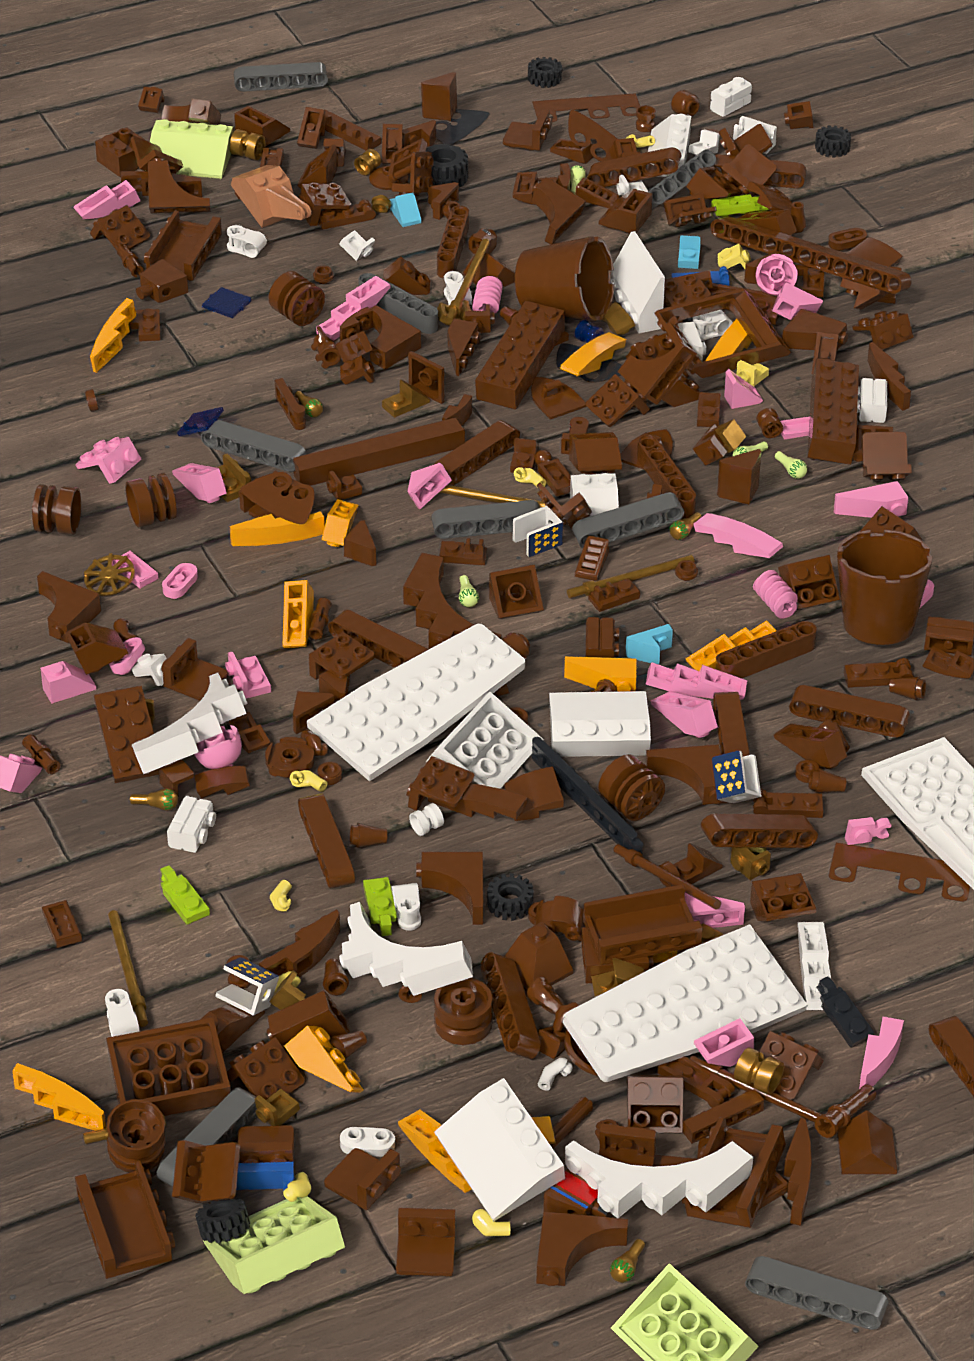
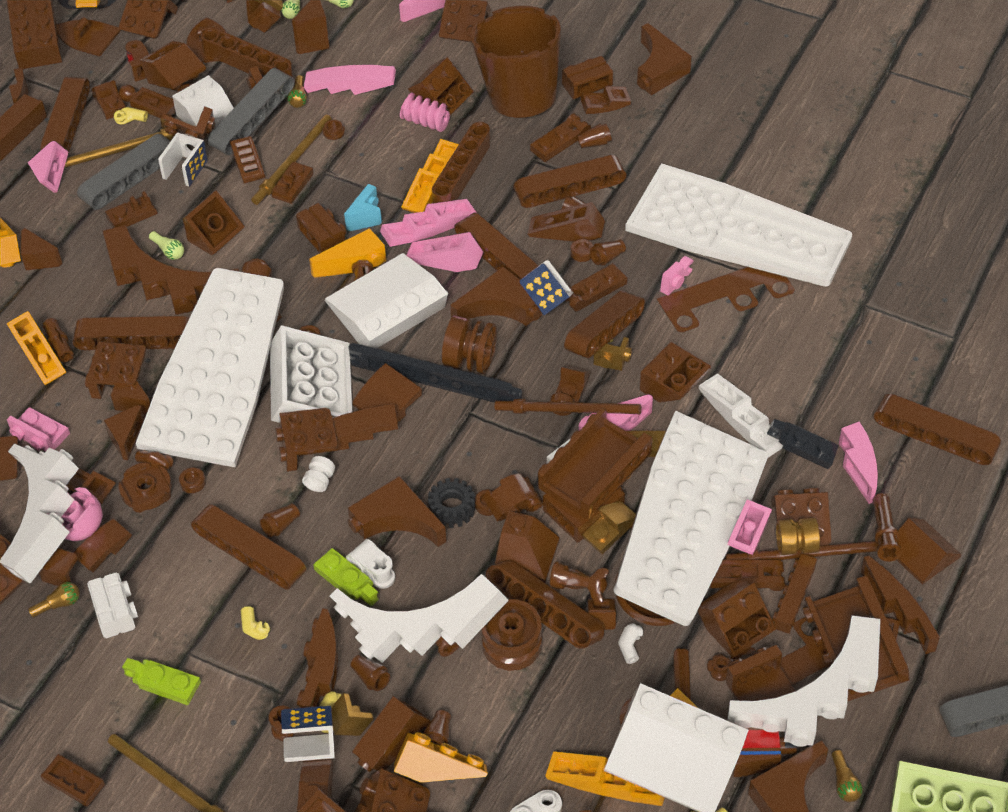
camera: 35 degrees left, 10 degrees up
(306, 779) = (179, 496): light yellow arm -> none

